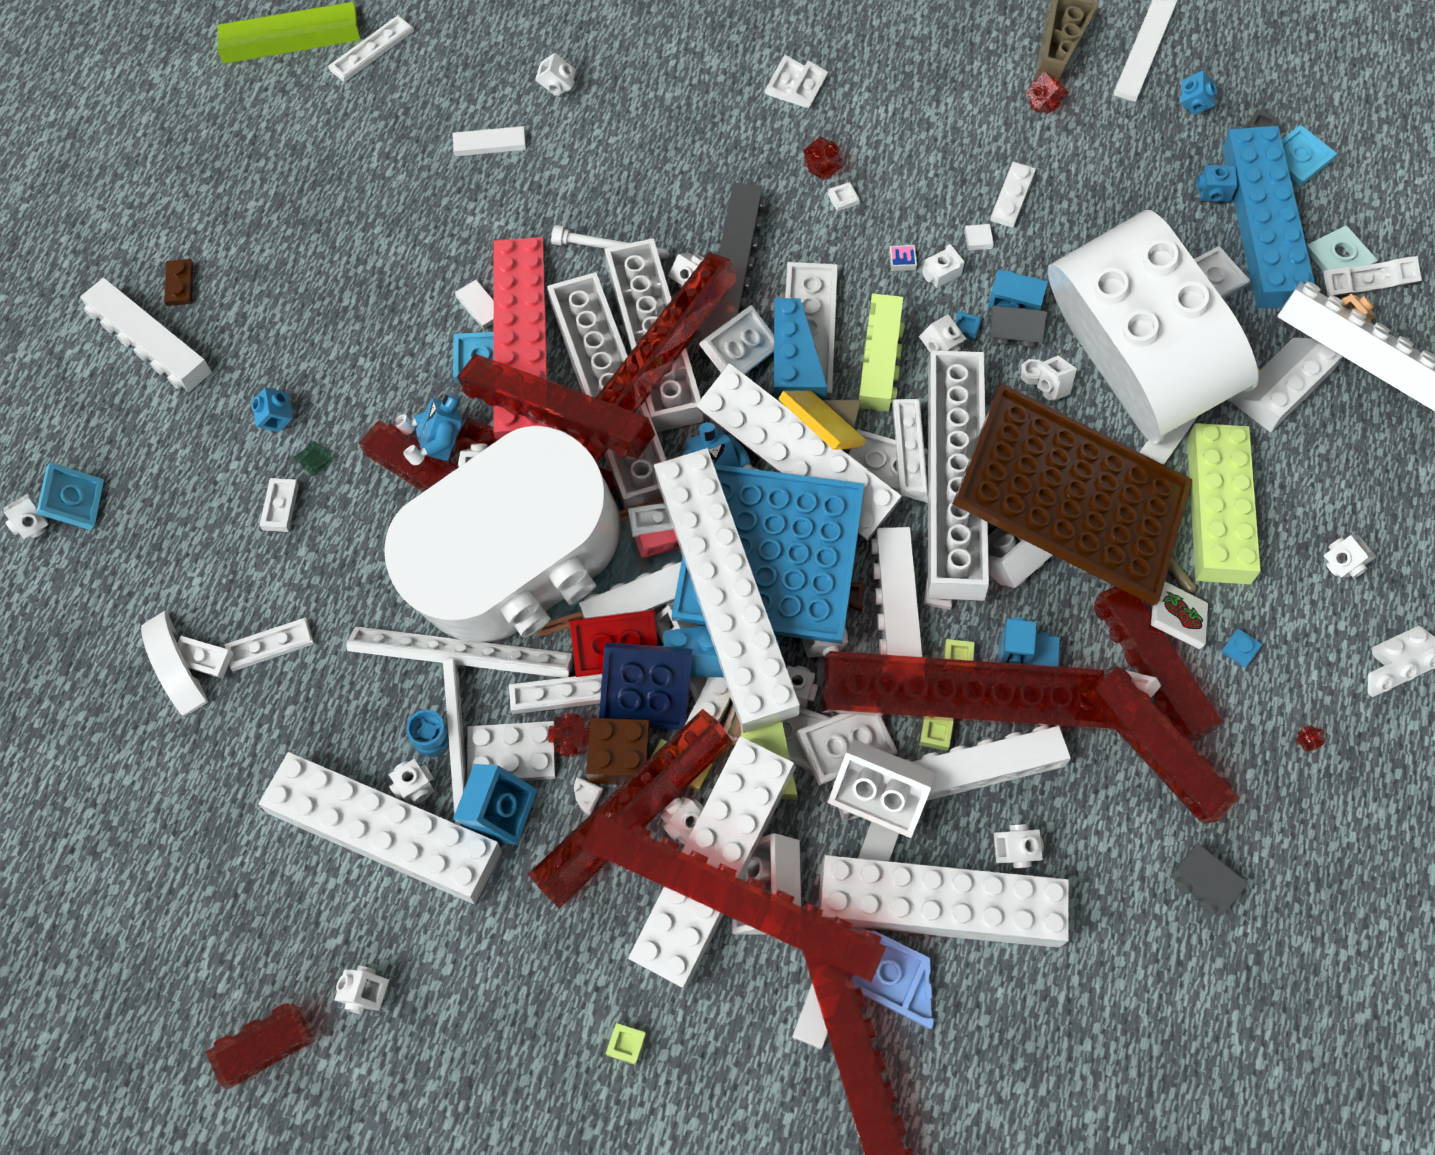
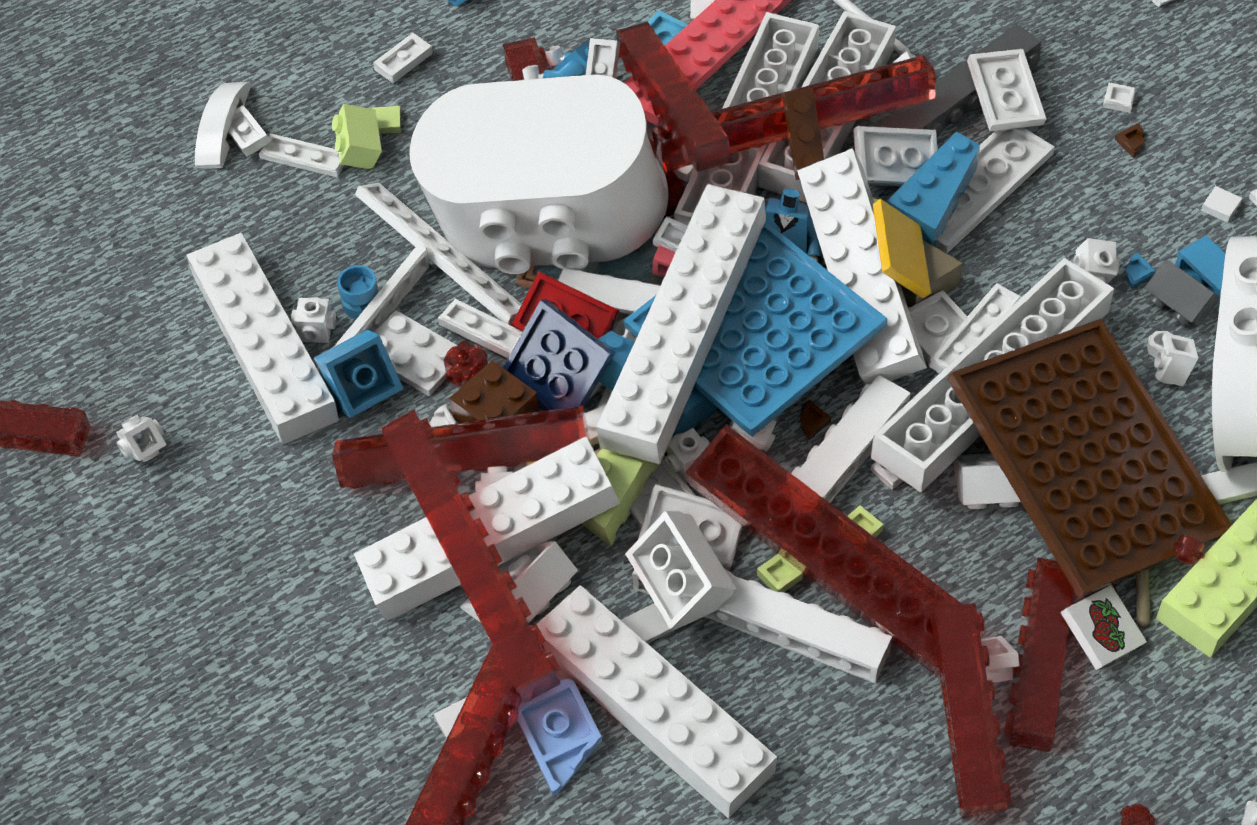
camera: 40 degrees right, 10 degrees down
(305, 599) = (357, 136): none -> yellowish green brick
(312, 567) = (388, 119): none -> yellowish green tile
(313, 458) = (461, 40): clear green tile -> none
(470, 416) = (603, 57): none -> white plate
(626, 1044) = (298, 622): yellowish green plate -> none
(675, 371) = (802, 128): none -> reddish brown plate
(773, 241) = (1006, 90): none -> white plate
(822, 158) = (1125, 51): clear red brick -> none
(879, 225) = (1131, 139): none -> reddish brown tile
(881, 353) = (1024, 239): yellowish green wedge -> none
(902, 257) = (1127, 179): tile -> none
(943, 267) = (1156, 207): white brick -> none
(1018, 846) = (751, 708): white brick -> none
(1023, 645) = (919, 544): dark azure brick -> none
(1188, 517) = (1189, 549): none -> clear red plate
(1241, 648) = (1144, 701): dark azure plate -> none

